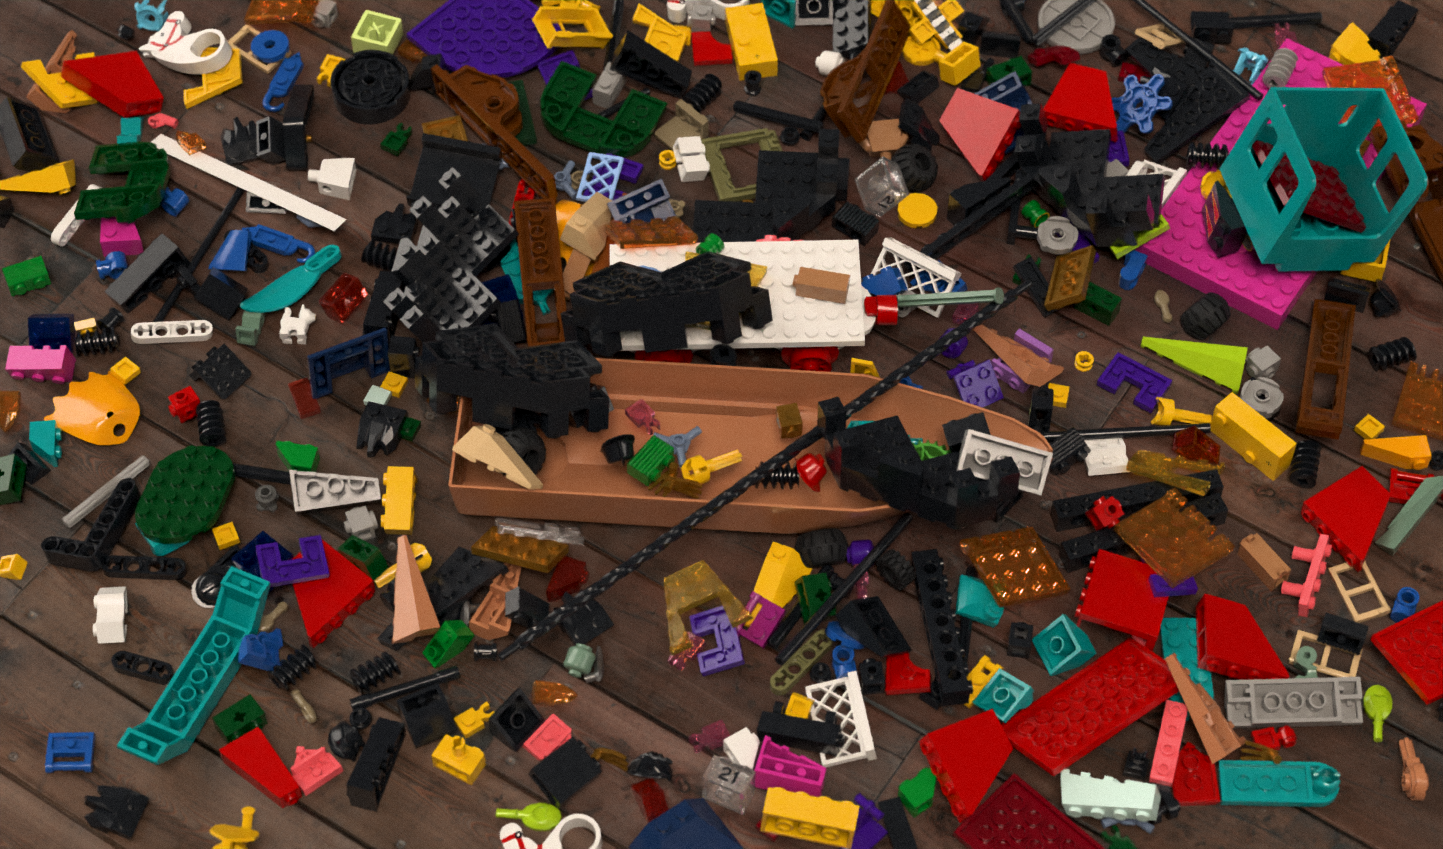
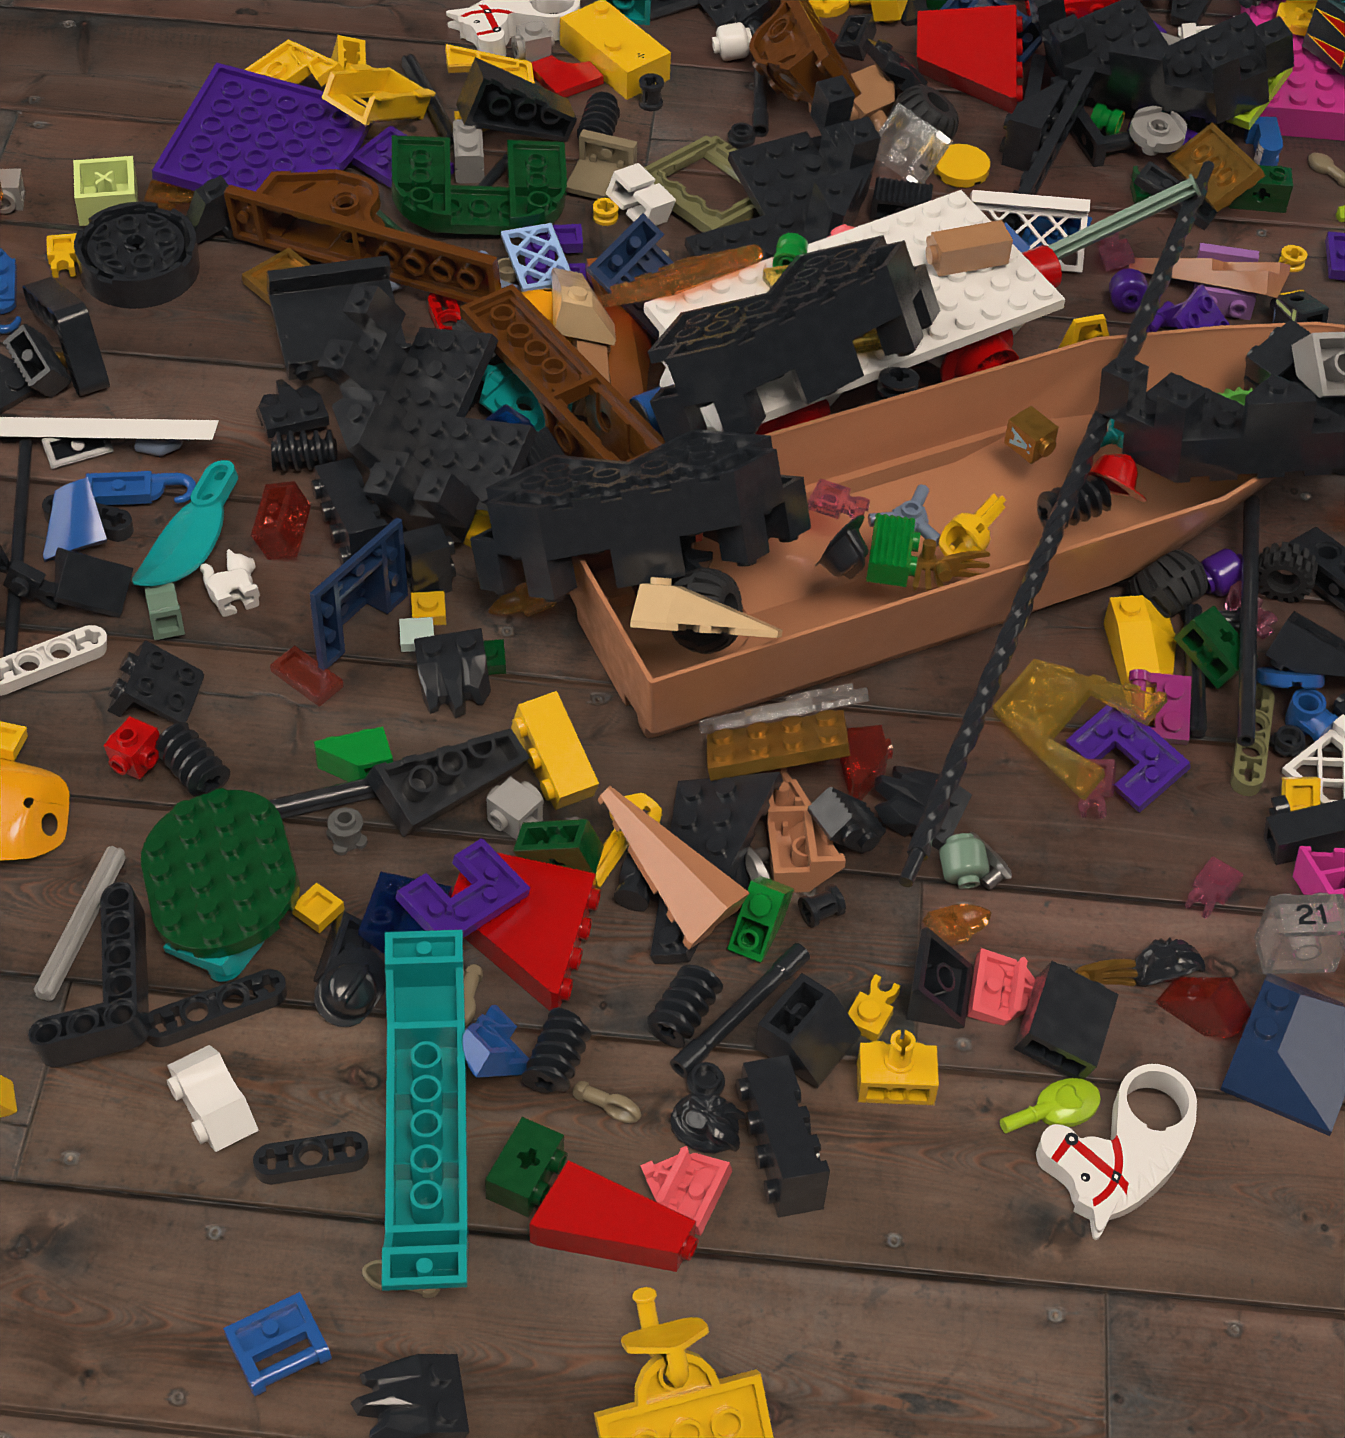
camera: 30 degrees left, 5 degrees down
(335, 177) = (160, 379): white torso -> none
(395, 142) = (217, 308): dark green plate -> none
(742, 748) = (1273, 876): white slope -> none
(778, 116) = (713, 116): black axle -> none

